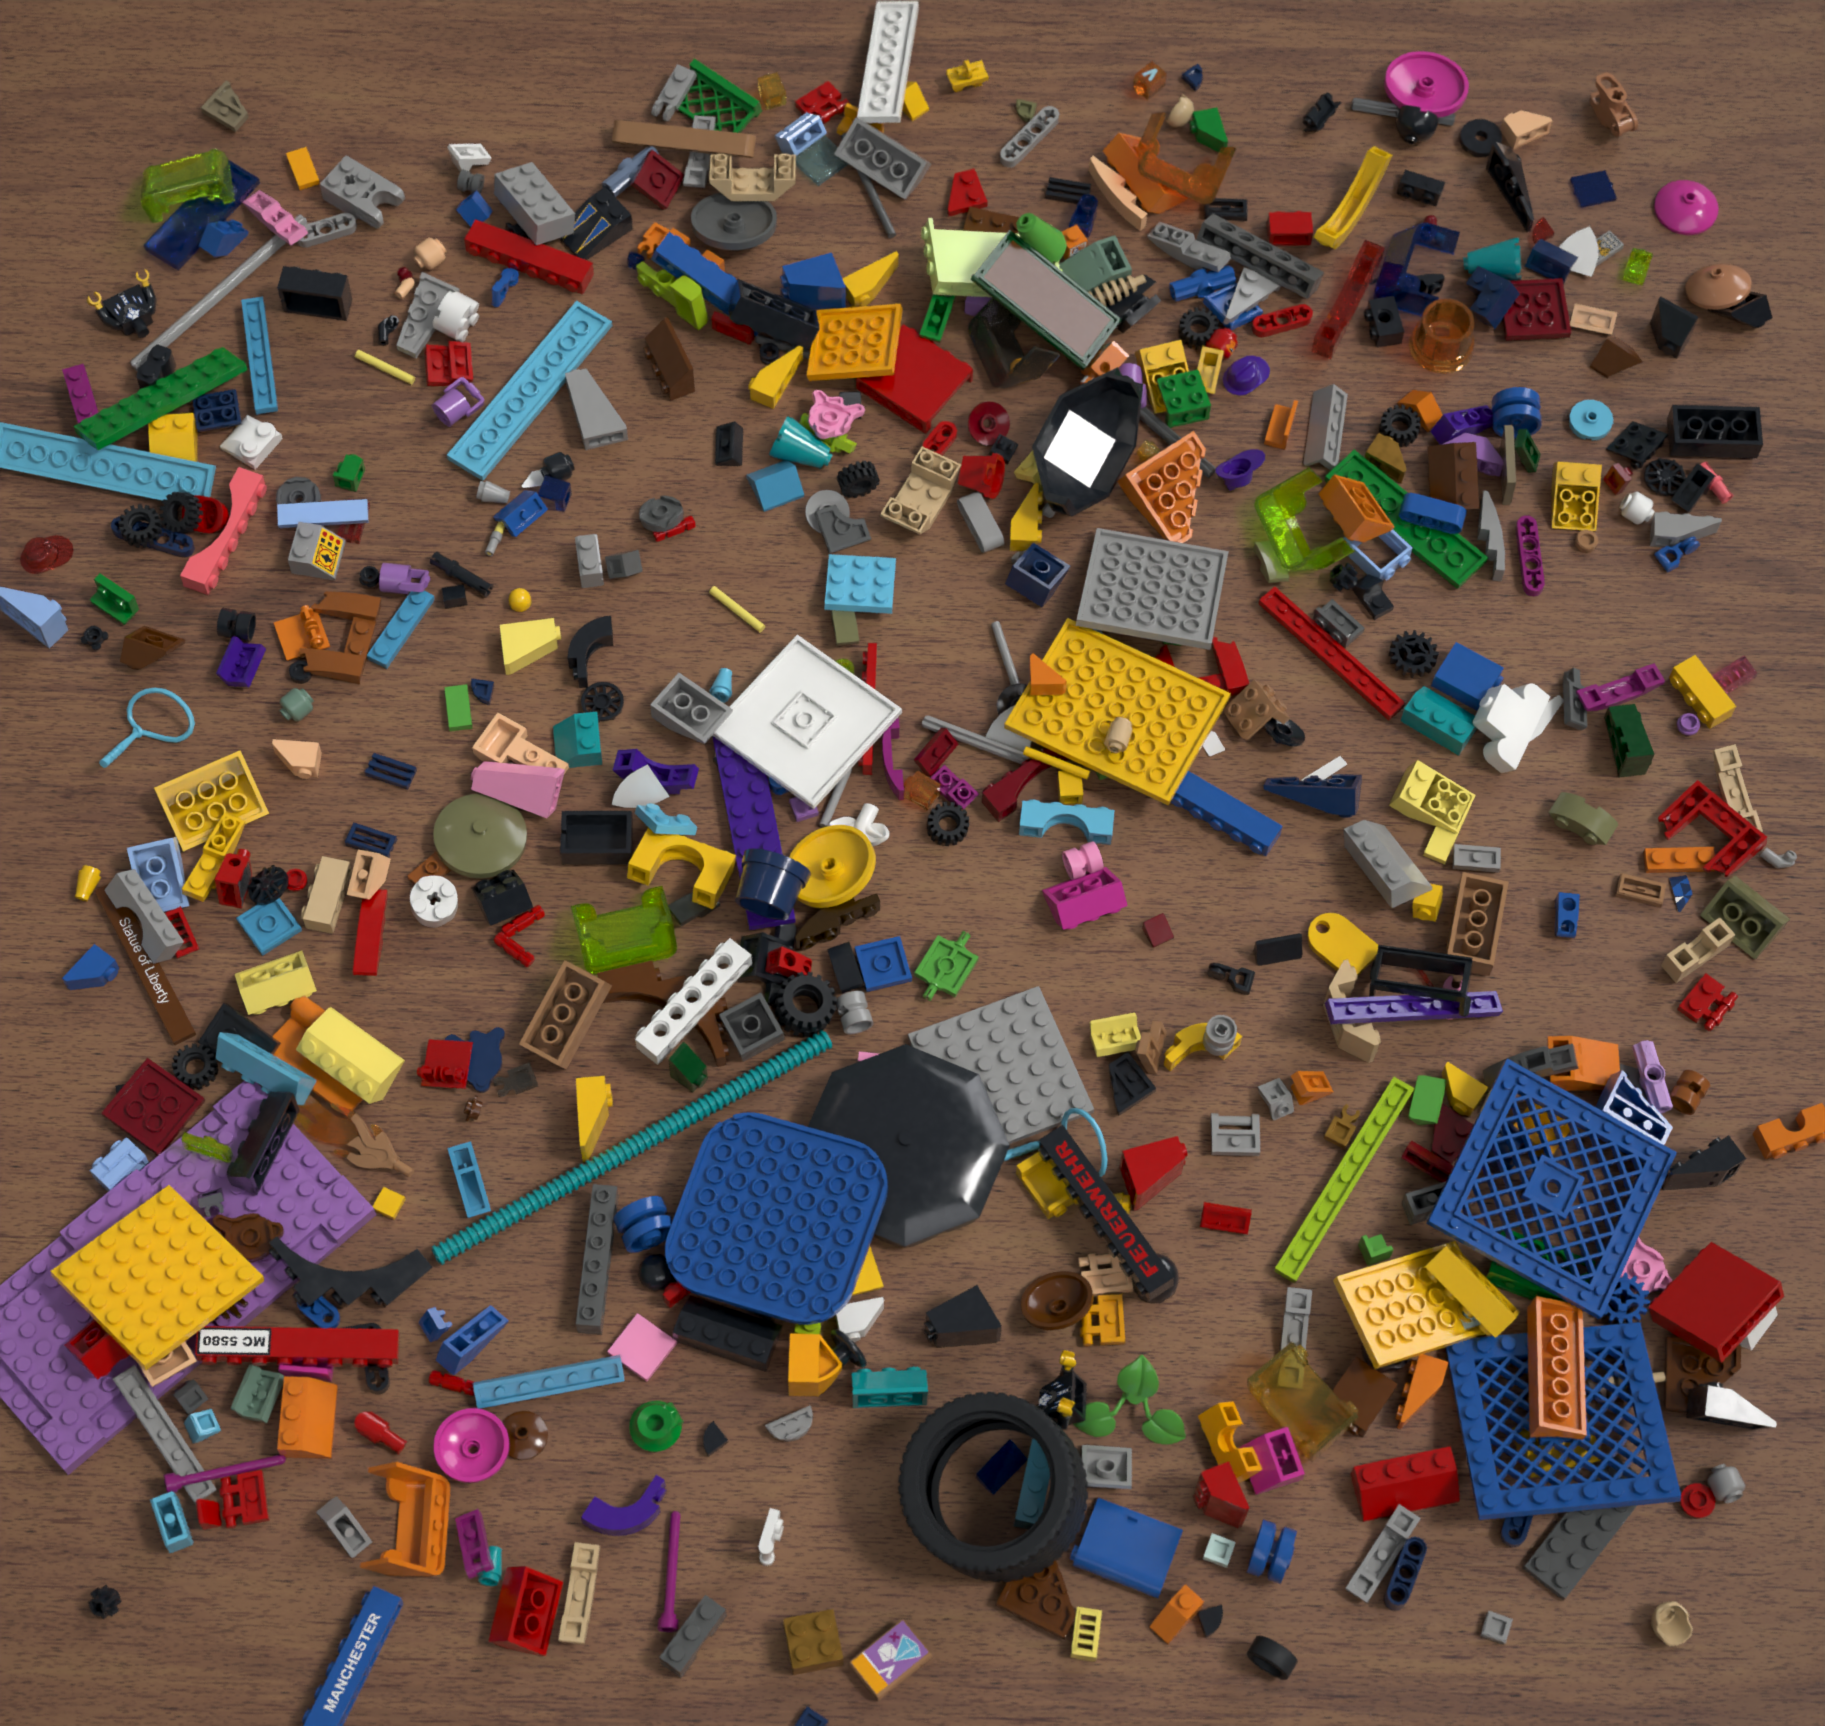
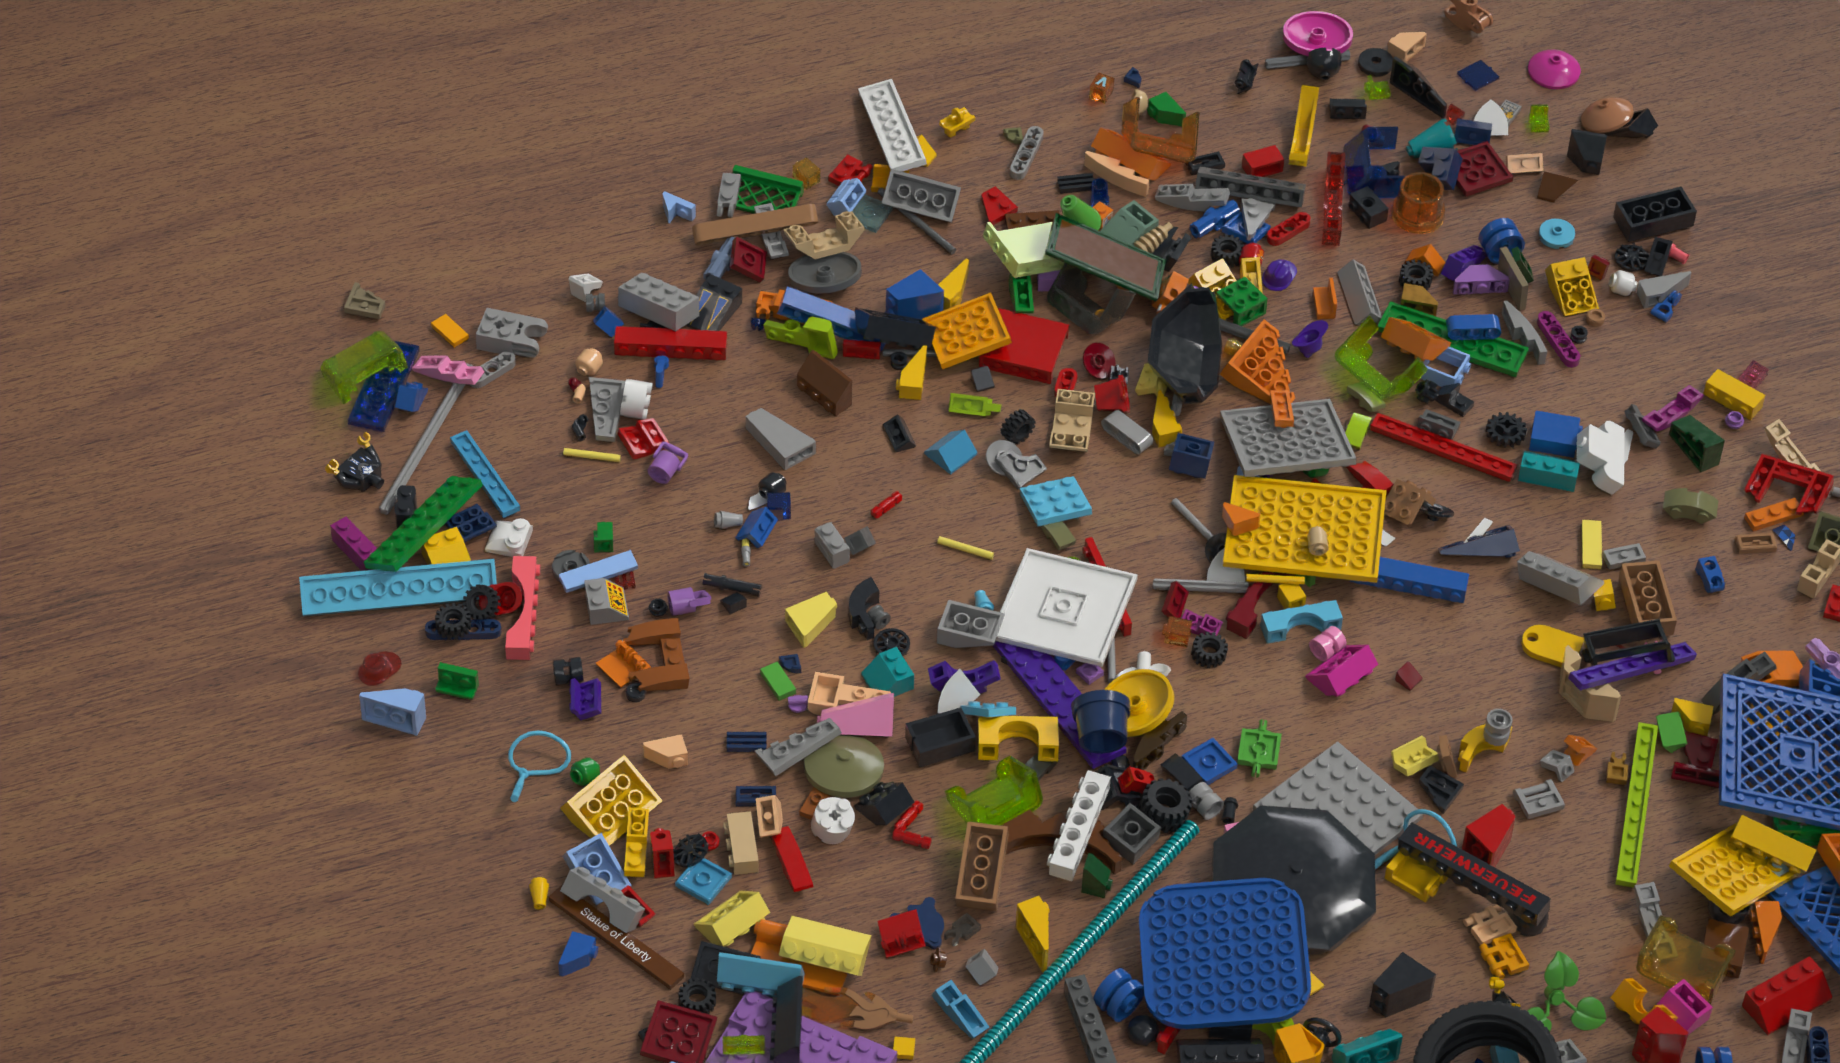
camera: 20 degrees left, 15 degrees down
(94, 631) = (455, 712): black plate -> none
(147, 646) = (503, 709): reddish brown slope -> none
(199, 752) = (584, 771): none -> green head
(296, 704) = (647, 714): sand green head -> none
(315, 293) = (511, 414): black piece -> none
(400, 628) = (701, 637): dark azure plate -> none
(426, 801) = (787, 753): none -> light grey wing
(465, 742) = (798, 703): none -> medium lavender plate
(516, 1134) = (982, 967): none -> light grey panel
(519, 600) = (788, 590): yellow piece -> none
(529, 391) = (719, 439): medium azure plate -> none
(600, 665) = (879, 617): none -> dark grey wheel
(609, 89) = (676, 206): none -> light blue slope
(661, 513) = (872, 496): dark grey tile -> none
(800, 446) = (957, 416): teal cone -> none
(830, 416) = (973, 388): bright pink tile -> none
(859, 1317) = (1316, 1007): white slope -> none
(878, 1031) = (1230, 807): none -> black pin
(893, 777) = (1151, 629): magenta slope -> none
(1057, 1300) = (1464, 950): reddish brown dish -> none
(1162, 549) = (1281, 408): none -> orange plate
(1218, 971) = (1469, 691): black piece -> none
(1225, 1218) = (1561, 857): red plate -> none
(1241, 600) = (1357, 429): none -> lime slope
(1278, 949) = (1507, 662): black slope -> none
(1374, 1249) = (1682, 843): bright green panel -> none
(1421, 1202) = (1705, 800): dark grey brick -> none
(1431, 798) = (1569, 523): light yellow slope -> none
(1454, 474) = (1476, 293): reddish brown slope -> none
(1465, 173) = (1376, 90): none -> clear neon green bracket
(1557, 550) = (1579, 330): none -> black bush
(1637, 443) = (1600, 239): black hinge -> none

